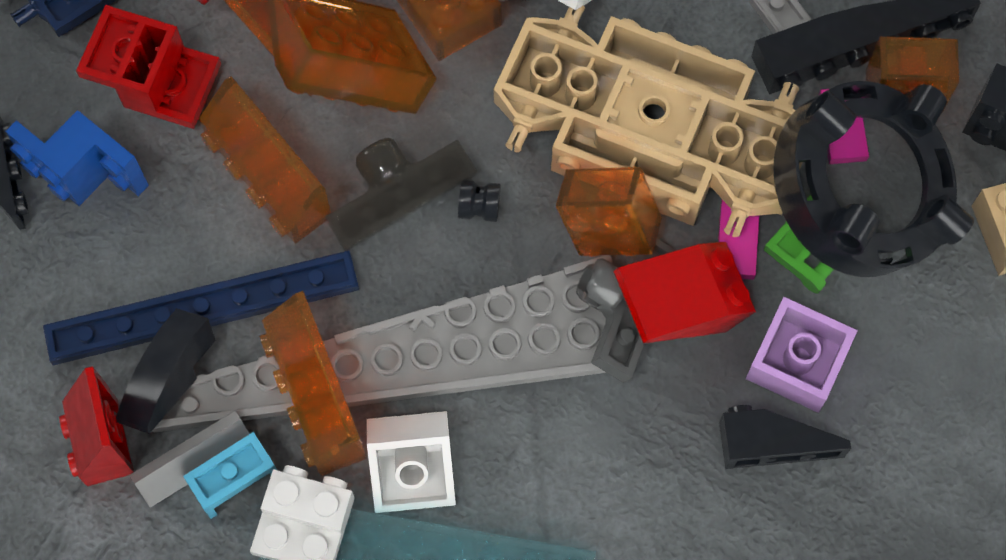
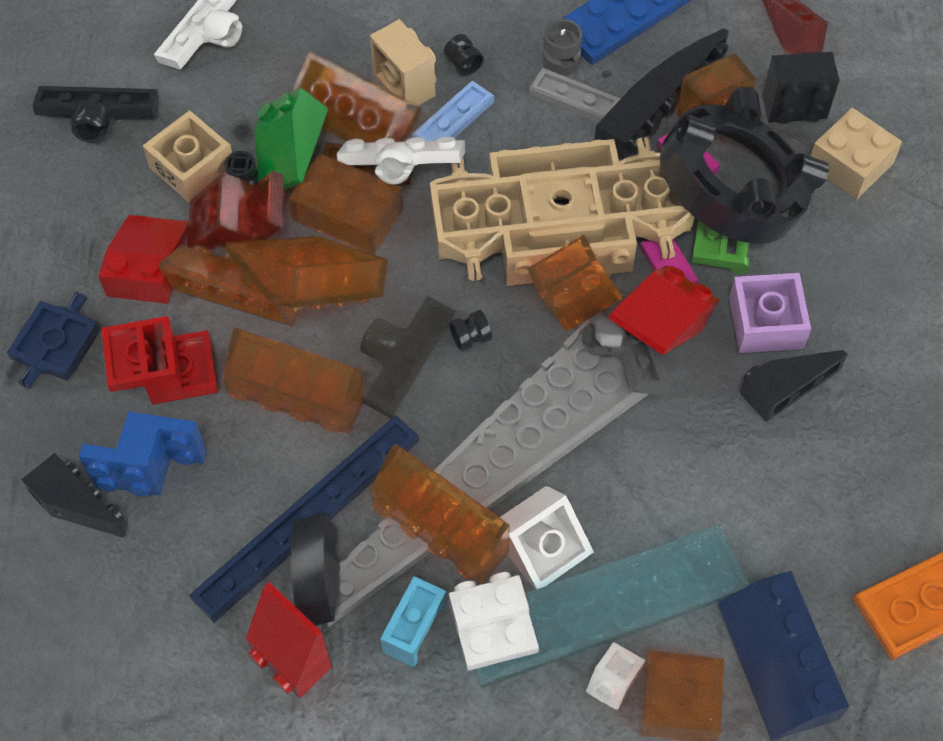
camera: 30 degrees left, 10 degrees down
(165, 474) = (365, 643): light grey tile -> none

